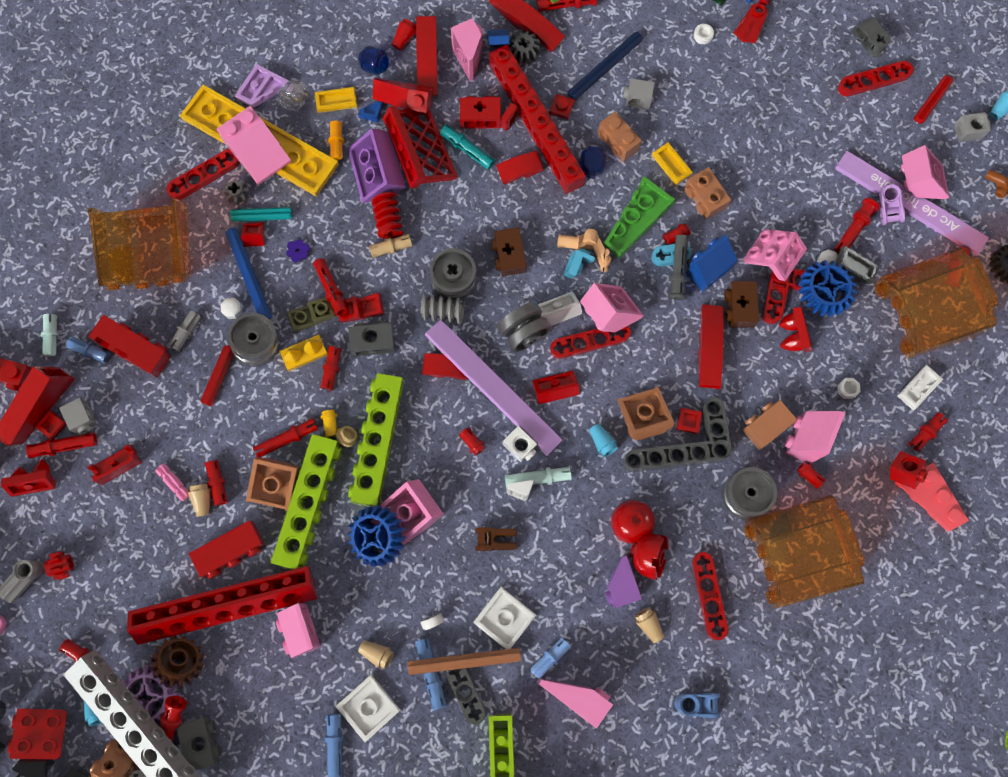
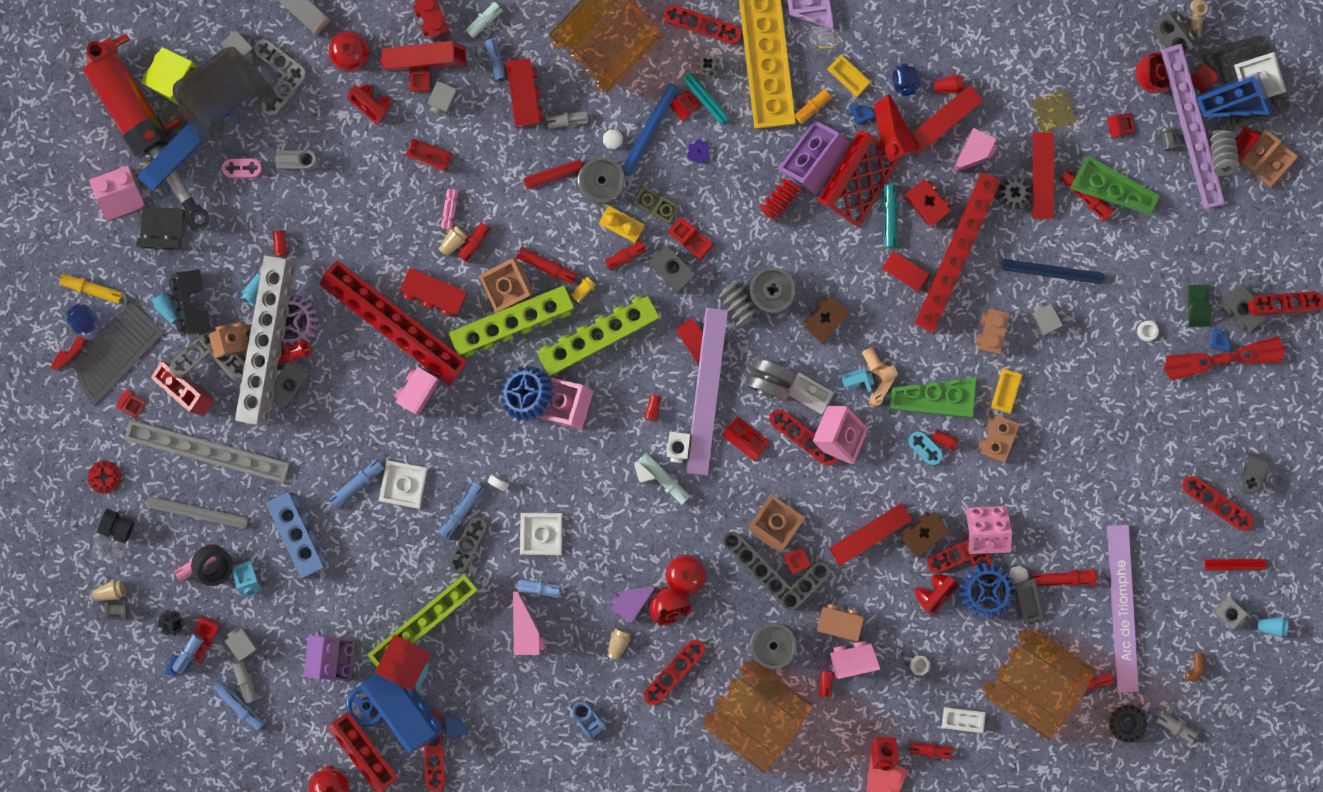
camera: 50 degrees right, 10 degrees up
(37, 734) = (209, 267): red bracket -> none
(51, 447) = (405, 98): red pin -> none
(59, 565) = (328, 179): red gear -> none
(177, 673) = (340, 323): reddish brown gear -> none
(253, 145) = (754, 50): bright pink slope -> none
(339, 305) = (677, 223): red pin -> none
(346, 436) = (583, 310): tan plate -> none
(377, 654) = (444, 460): tan cone -> none
(390, 246) = (759, 221): tan pin -> none
(463, 661) = (488, 527): nougat axle -> none
(491, 544) = (593, 476): reddish brown piece -> none
(497, 37) = (1003, 167): blue slope -> none
(509, 116) = (942, 229): red tile -> none
(561, 106) = (987, 264): red plate -> none
(593, 161) = (955, 326): clear blue head -> none
(603, 440) = (730, 507): medium azure cone -> none
(679, 276) = (907, 469): dark grey pin -> none
(712, 263) = (938, 486): blue slope -> none
(891, 206) = (1101, 596): lavender piece -> none
(924, 174) = (1152, 603): bright pink slope -> none

